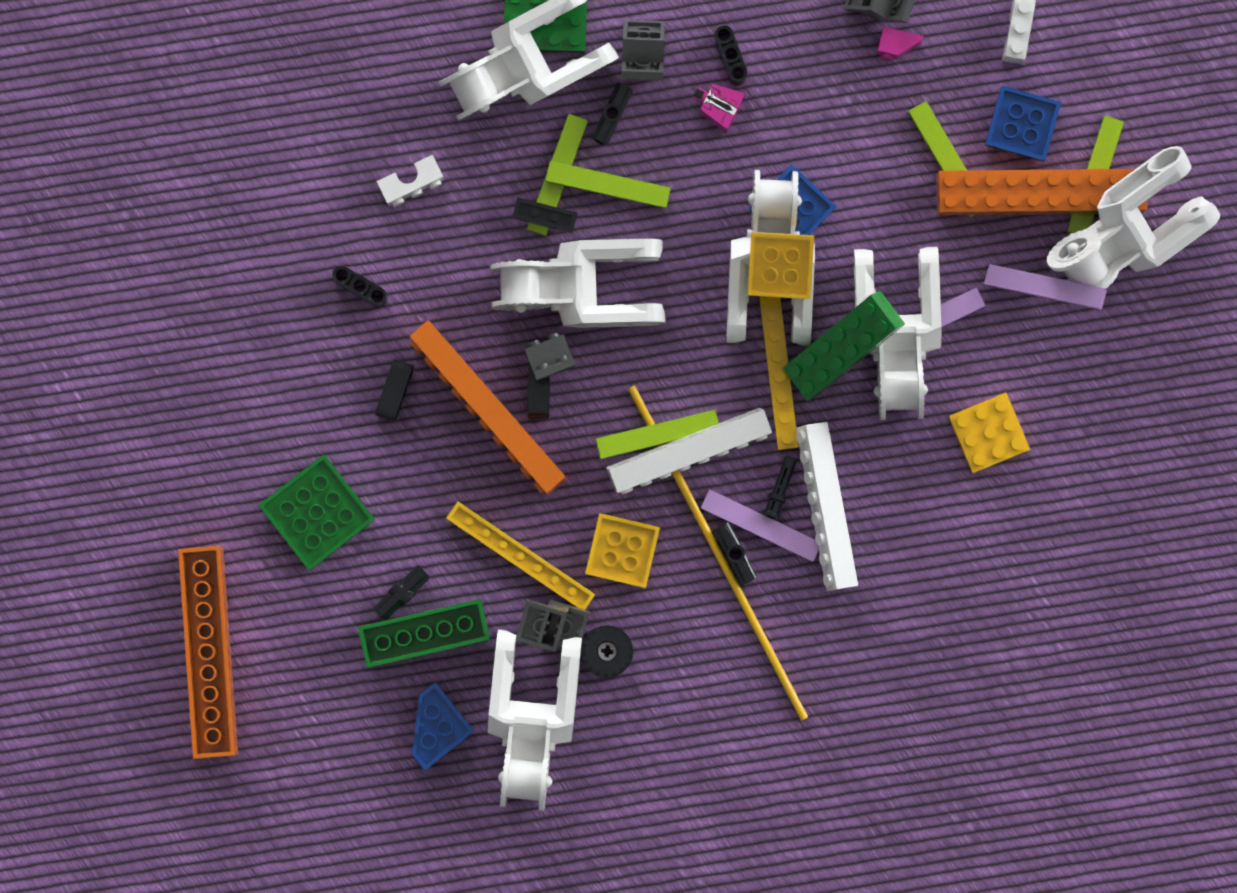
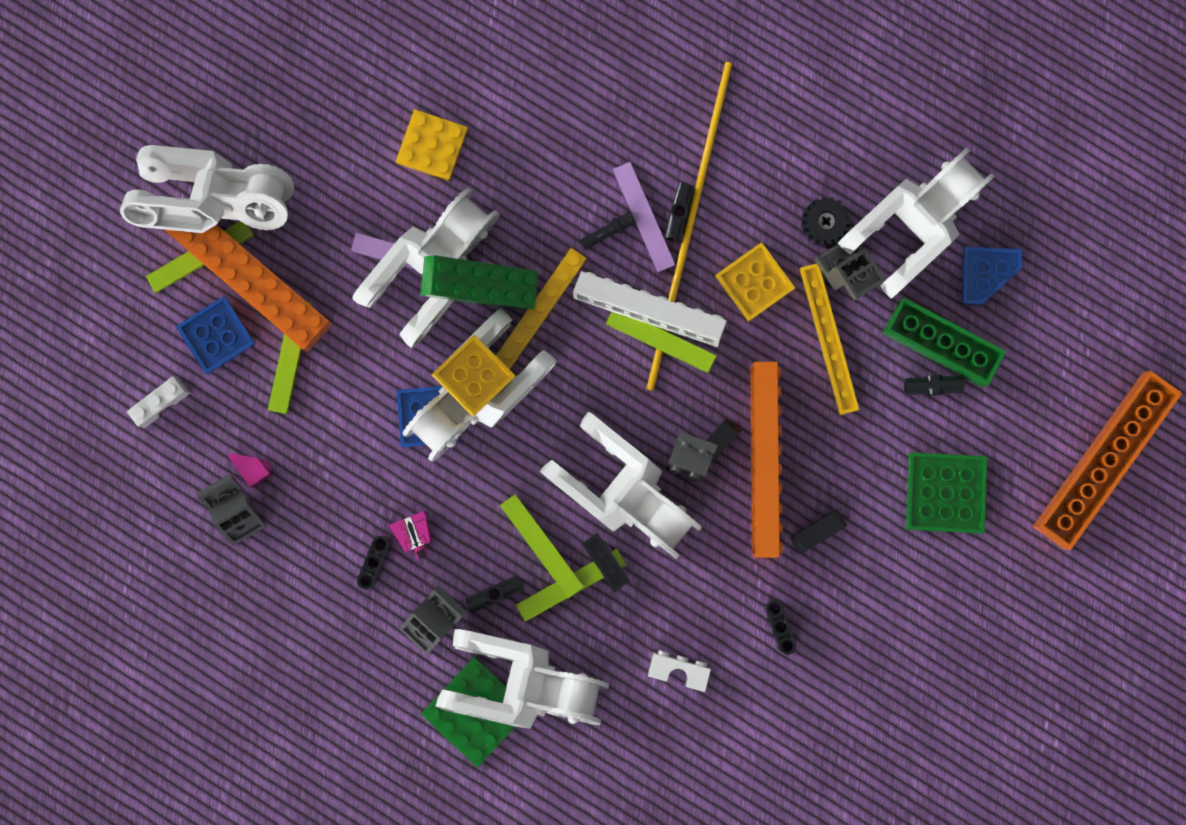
camera: 140 degrees left, 0 degrees up
(826, 506) = (588, 189): white brick -> none
(1045, 287) = (303, 204): lavender tile -> none

